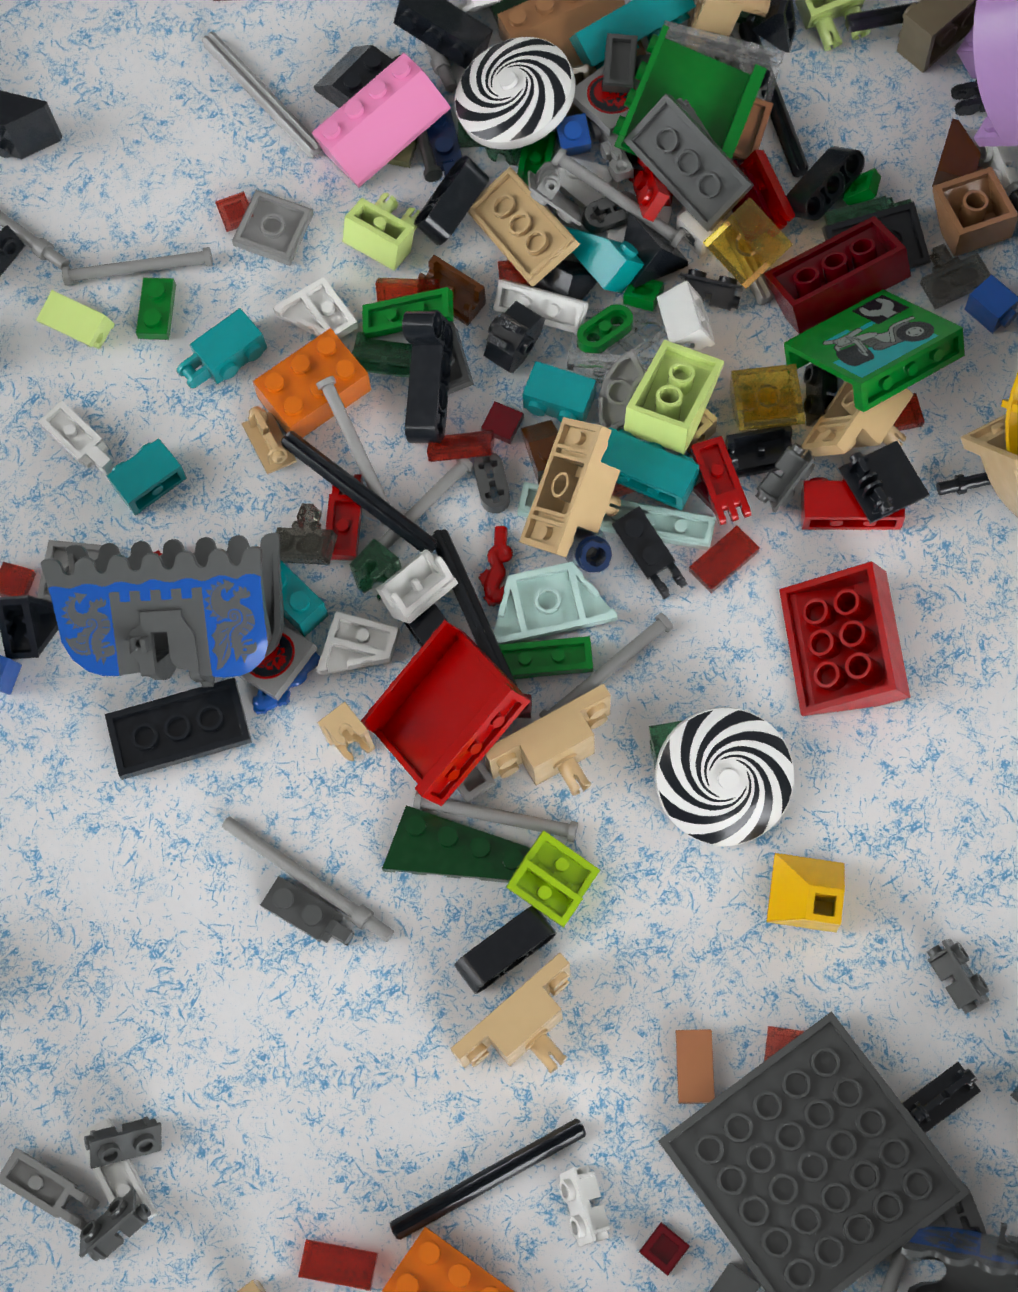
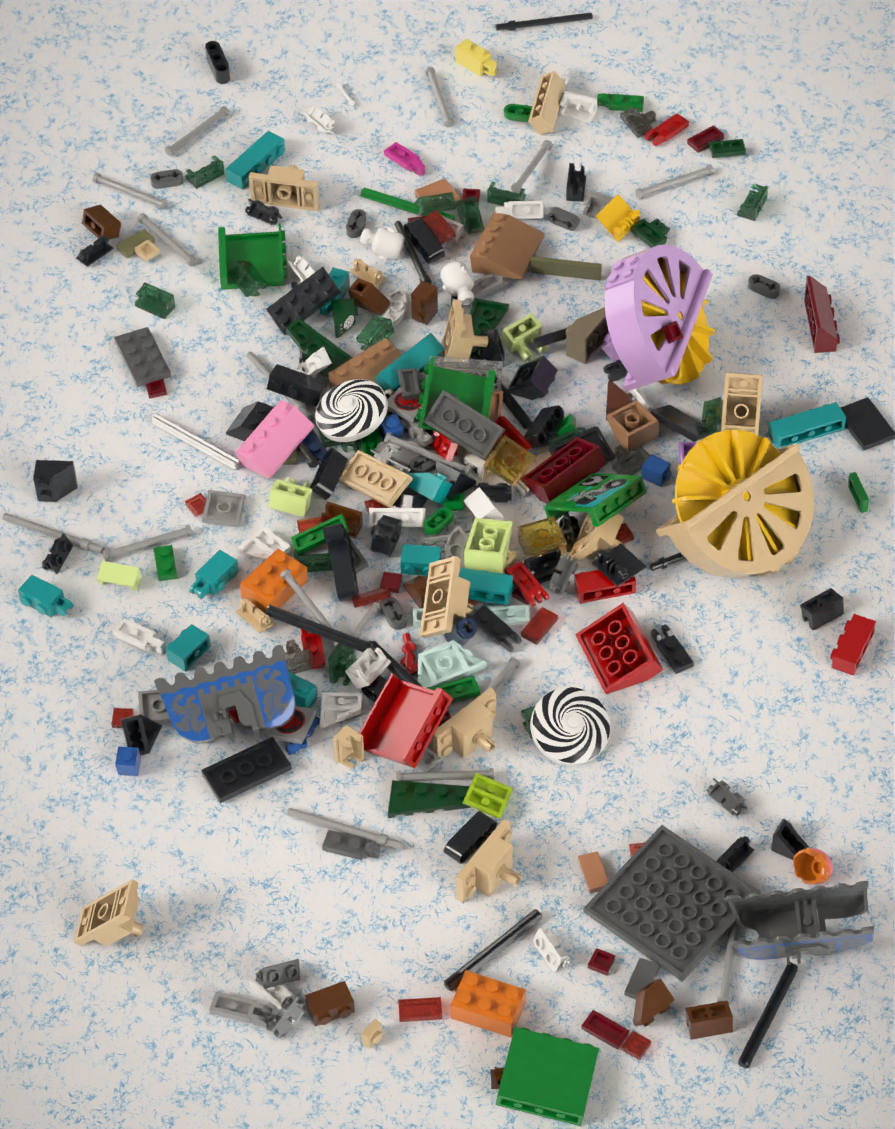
camera: 20 degrees left, 20 degrees down
(191, 1220) = (330, 1003): none -> reddish brown brick
(806, 893) = (632, 776): yellow slope -> none
(829, 88) = (533, 379): none -> black slope
(935, 658) = (672, 650): none -> black hinge

